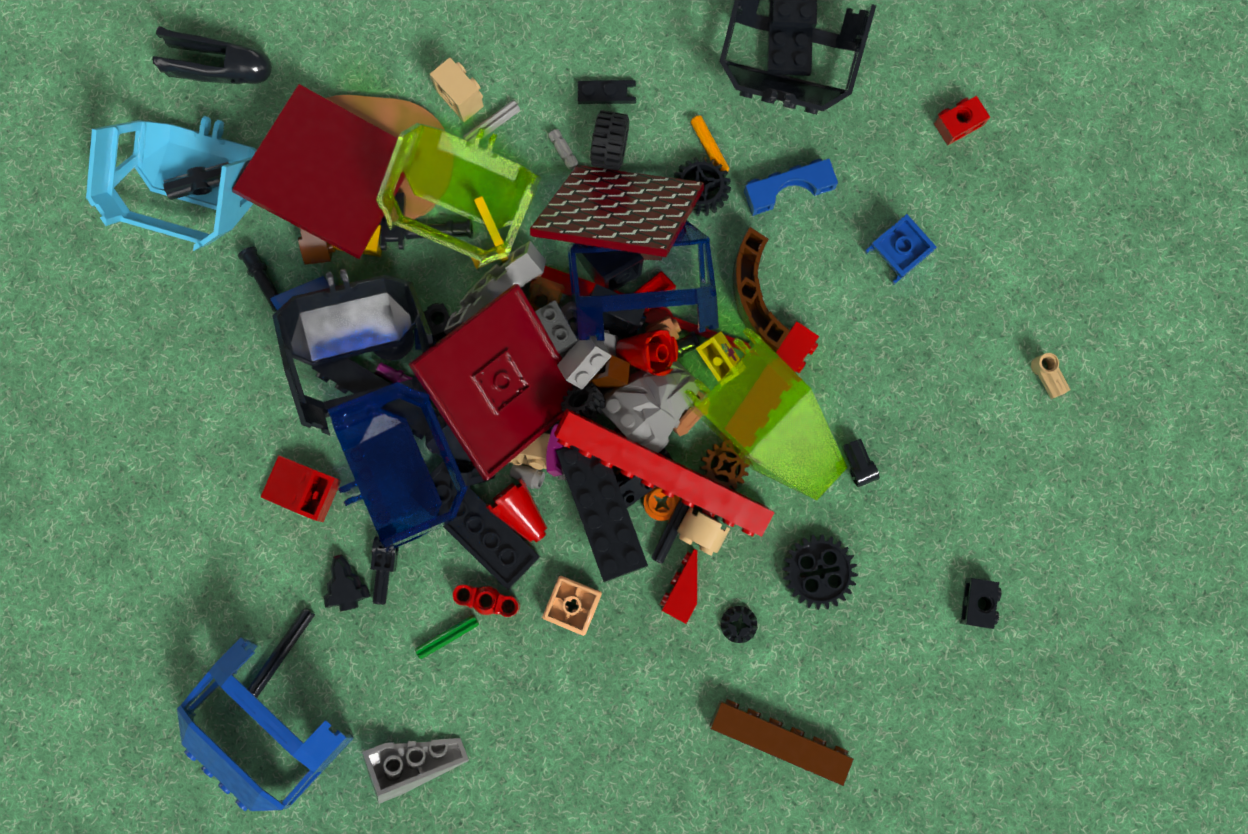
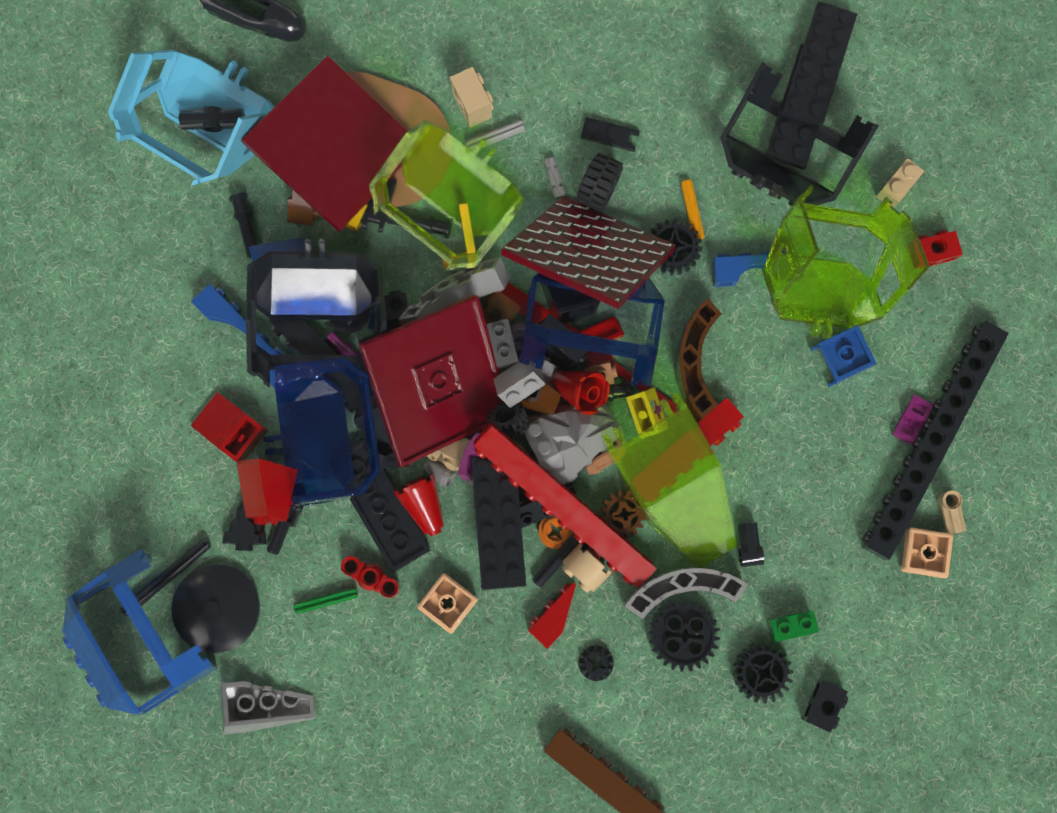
camera: 15 degrees right, 0 degrees up
(255, 371) = (216, 308): none -> blue arch
(336, 676) = (216, 608): none -> black dish
(355, 541) = (266, 490): none -> red slope
(800, 518) = (680, 581): none -> light grey brick
(873, 187) = (836, 291): none -> clear neon green windscreen
(905, 597) = (768, 664): none -> black gear
(908, 64) = (901, 182): none -> tan brick
(925, 532) = (792, 626): none -> green brick
(985, 294) = (912, 419): none -> magenta slope
(1043, 194) = (993, 338): none -> black brick
(1044, 410) = (938, 544): none -> light nougat brick

